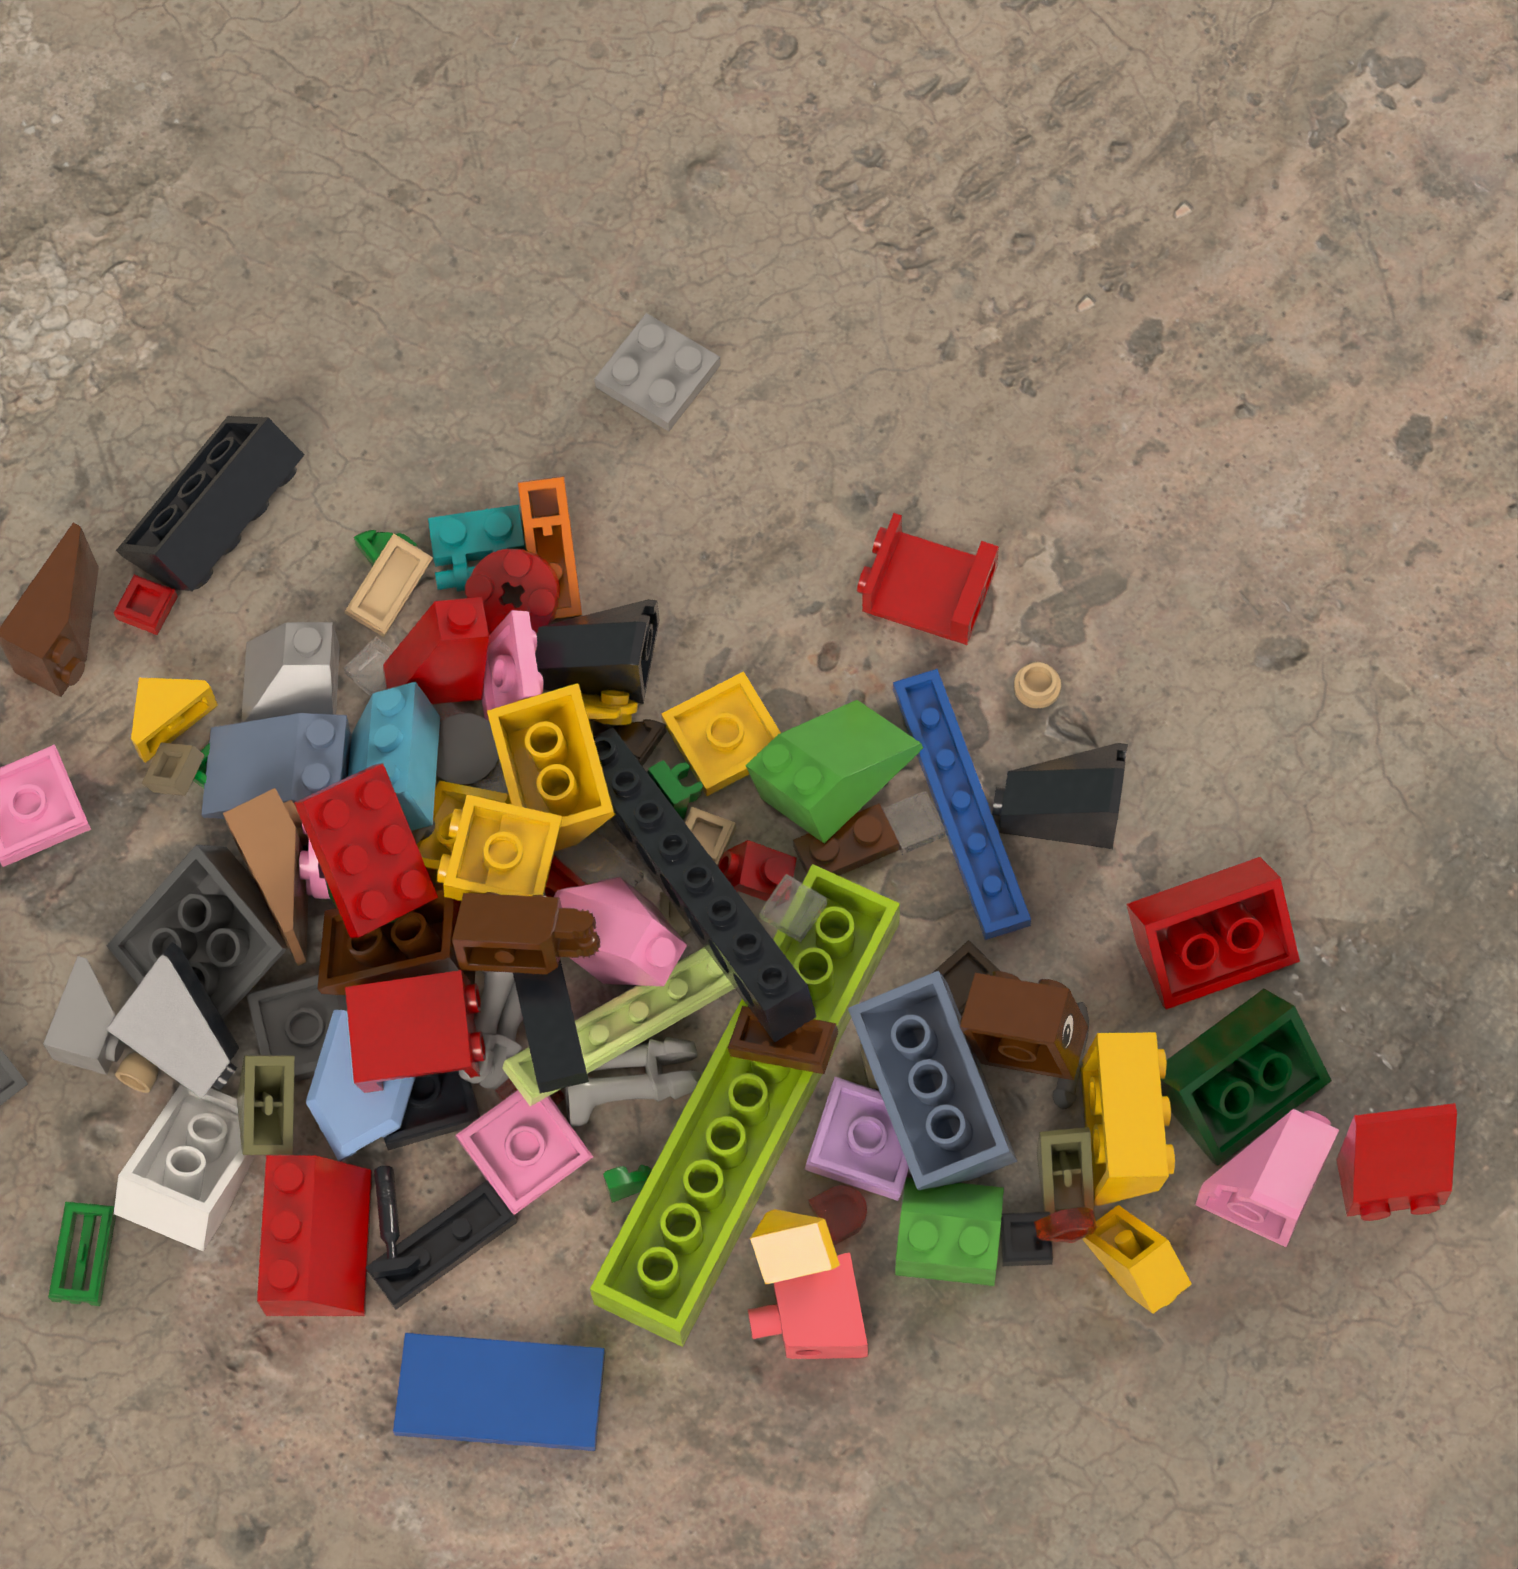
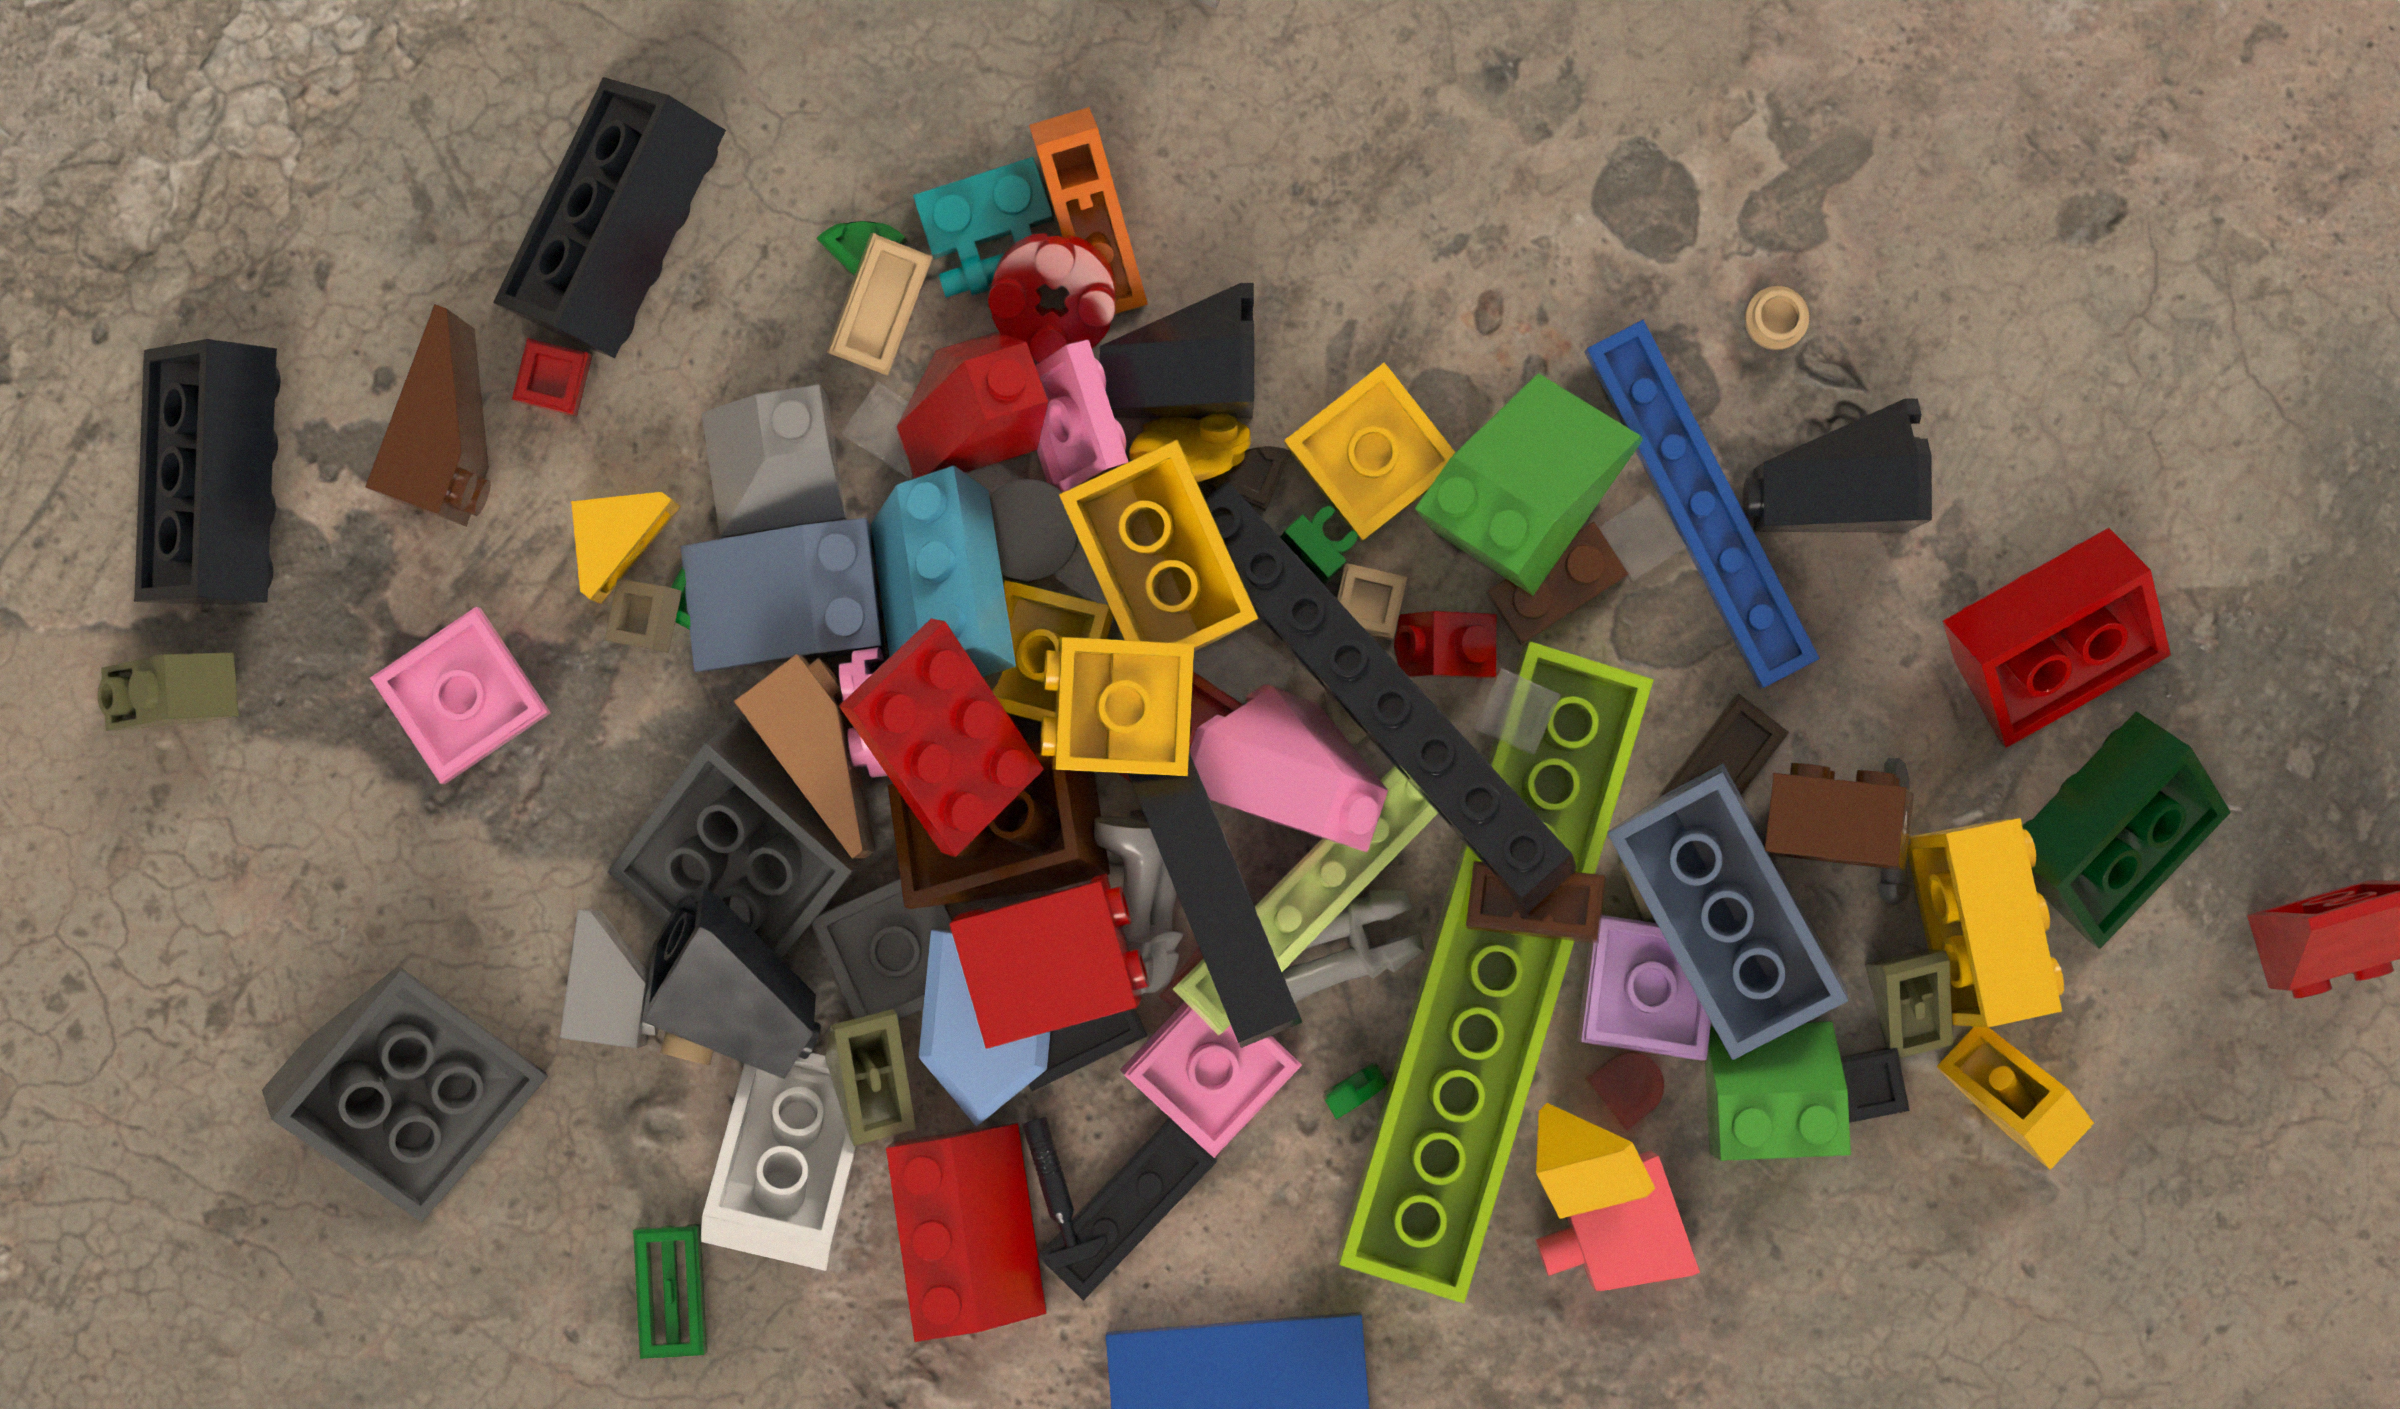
camera: 10 degrees left, 20 degrees up
(520, 933) = (1170, 822): reddish brown hinge -> none
(926, 583) = (1609, 189): red panel -> none
(1067, 1225) = (1925, 1070): clear red tile -> none
(1272, 1177) = (2184, 961): bright pink slope -> none

